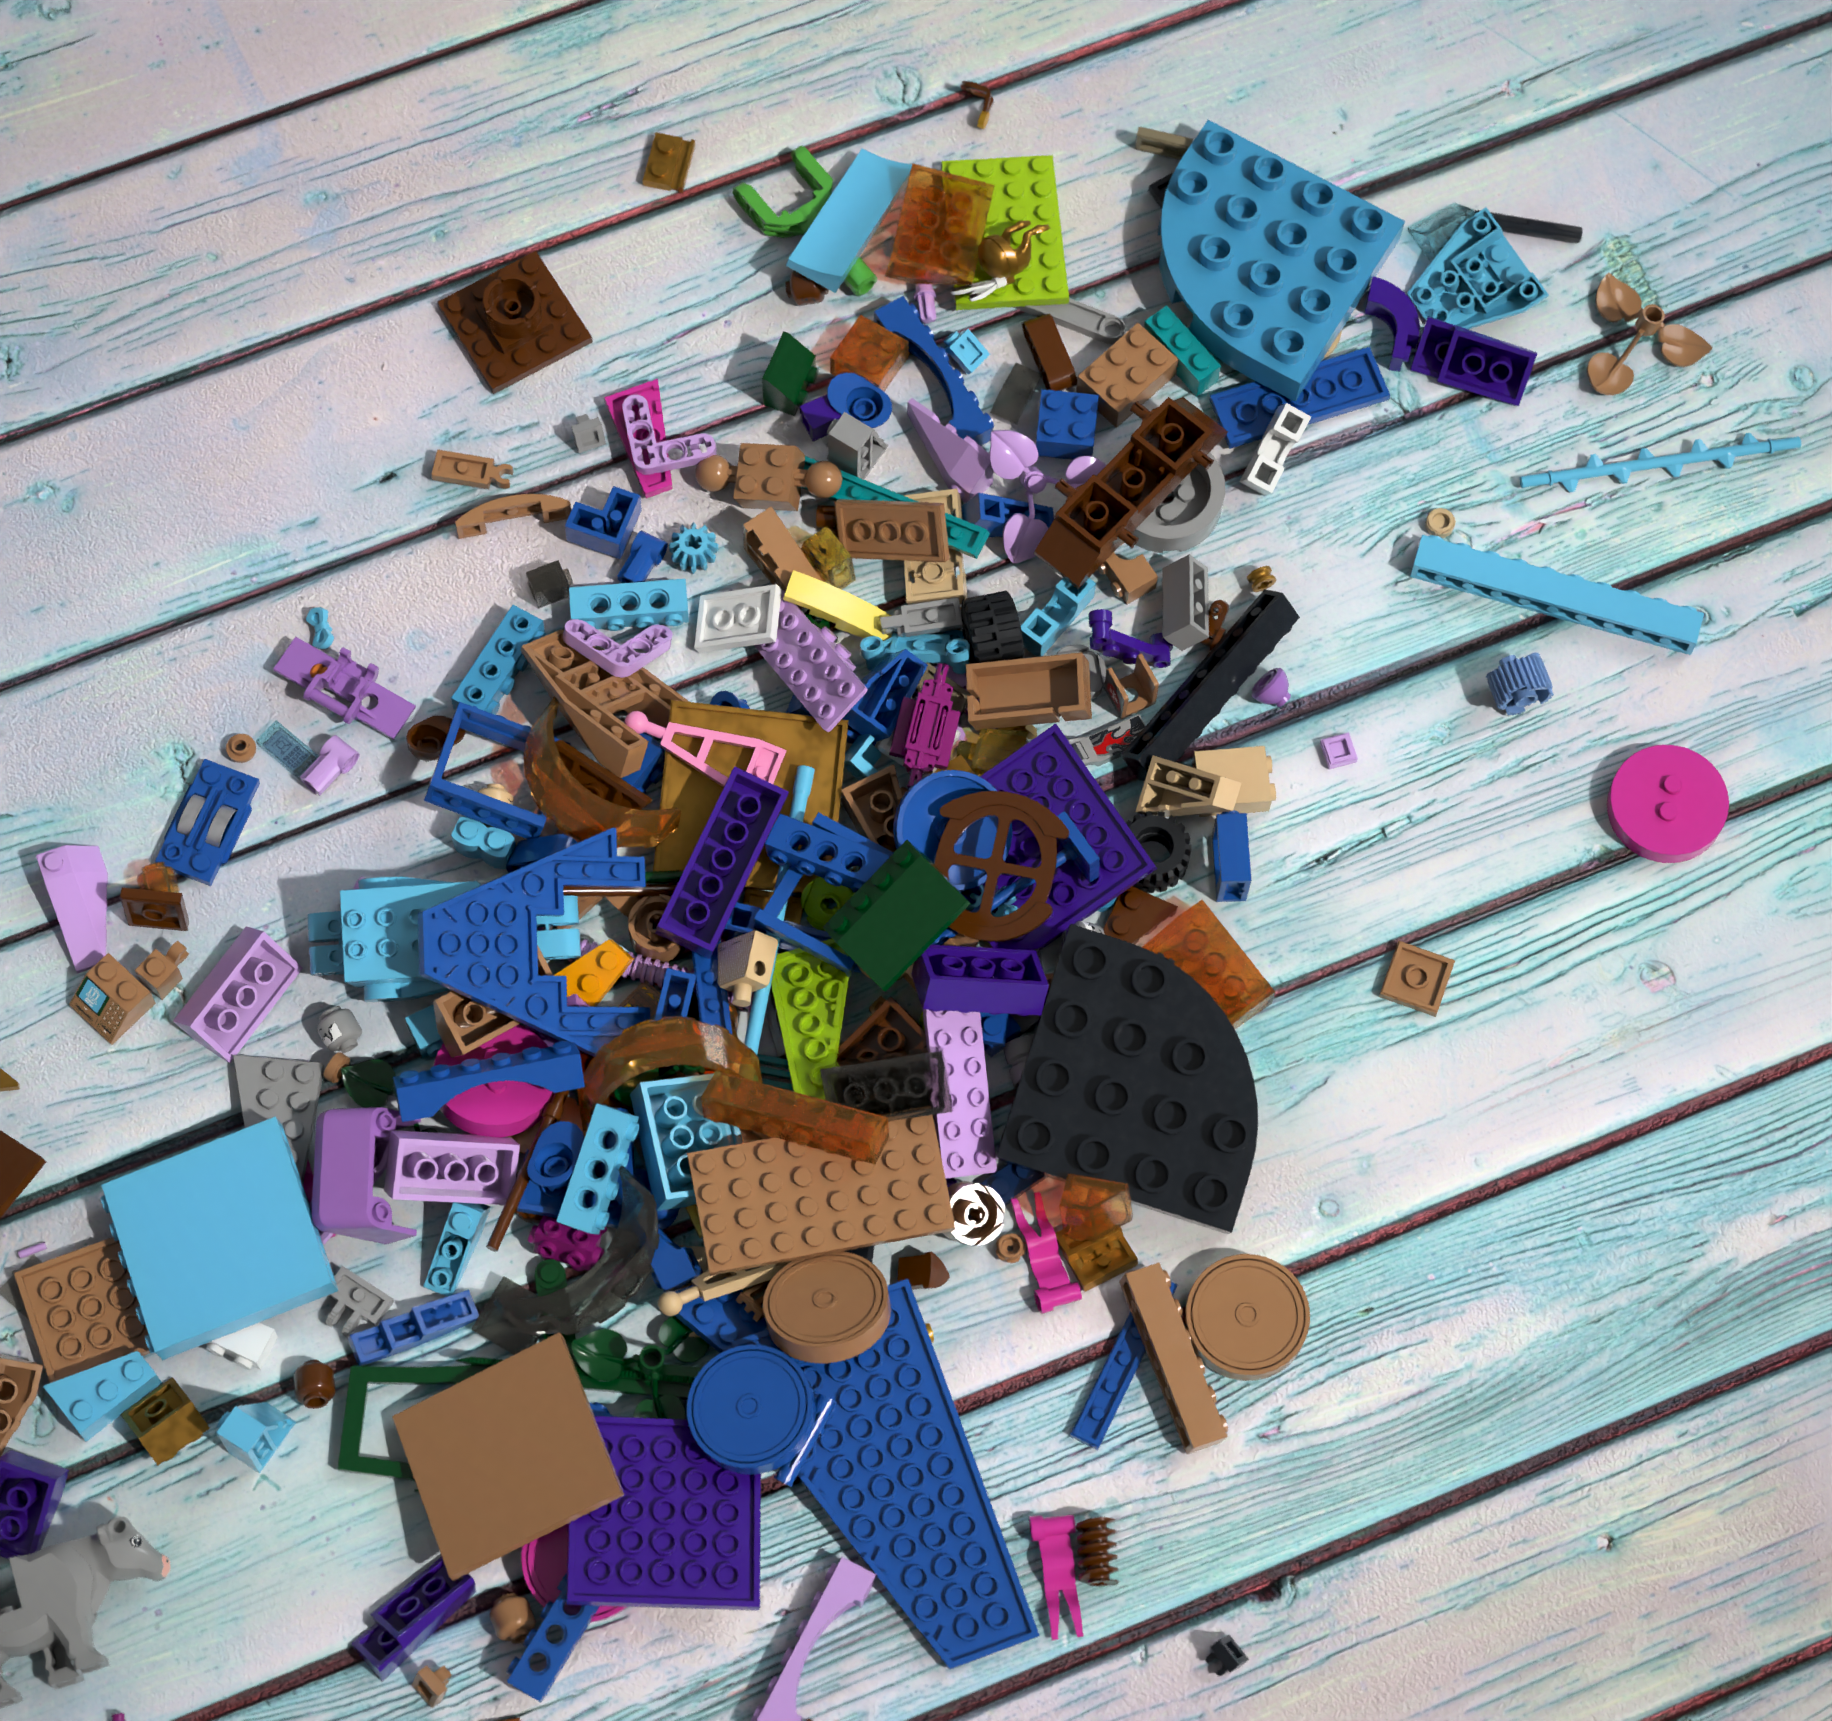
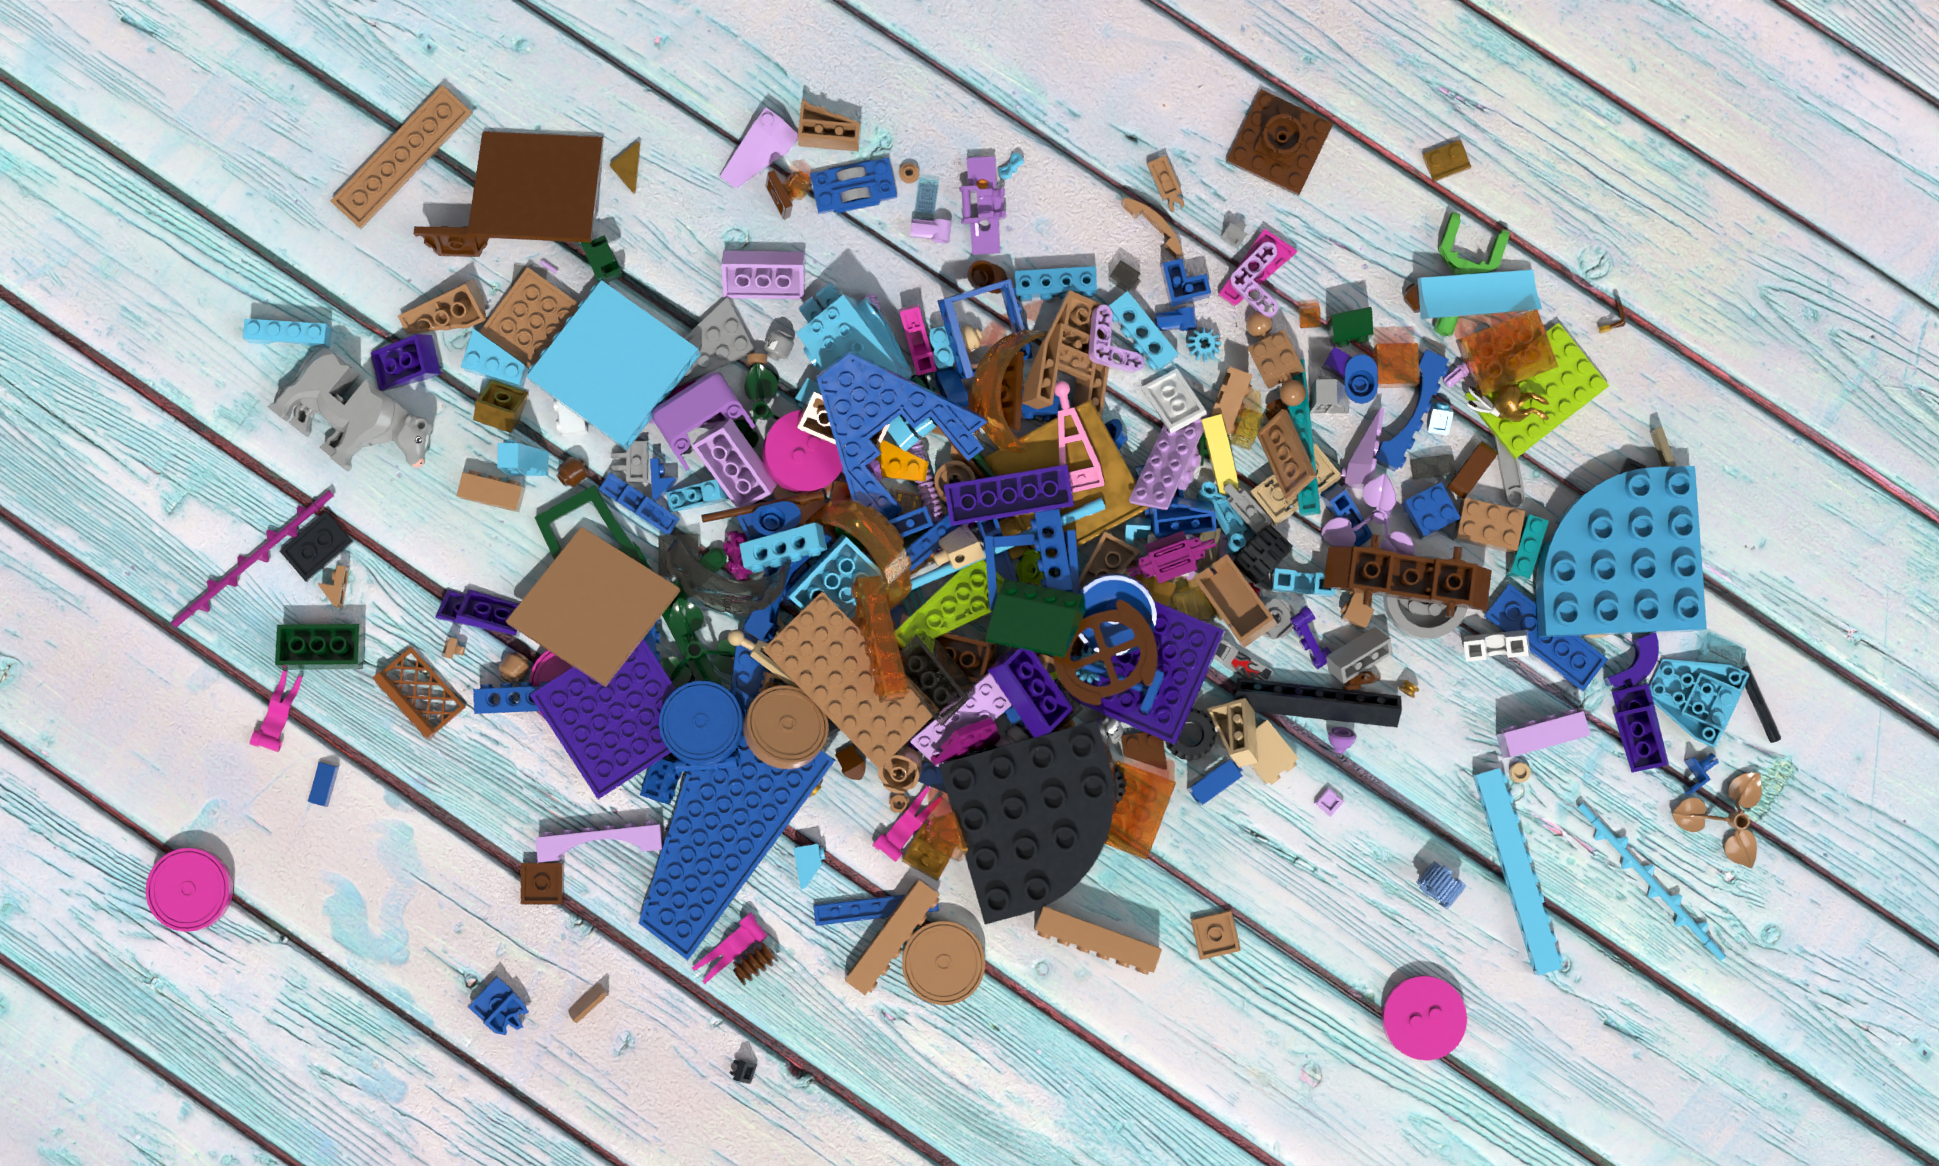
camera: 60 degrees right, 15 degrees up
(72, 1174) = (602, 260): none -> dark green panel
(111, 999) = (715, 207): medium nougat slope -> none
(117, 805) = (826, 130): none -> medium nougat wedge
(161, 972) = (746, 223): medium nougat brick -> none
(265, 1503) = (491, 491): none -> medium nougat brick
(406, 1286) = (660, 485): none -> blue slope
(425, 1092) = (822, 478): blue arch -> none
(450, 863) = (917, 339): none -> dark pink arch
(742, 415) = (1309, 315): none -> clear orange slope
(787, 1524) = (661, 782): none -> blue bracket
(989, 1104) = (967, 740): none -> magenta wing
(1012, 1405) = (808, 862): none -> medium azure slope
(1141, 680) = (1294, 657): medium nougat piece -> none
(1336, 1111) = (1097, 939): none -> medium nougat brick
(1411, 464) = (1548, 733): none -> lavender brick
(1563, 333) = (1699, 770): none -> blue bracket

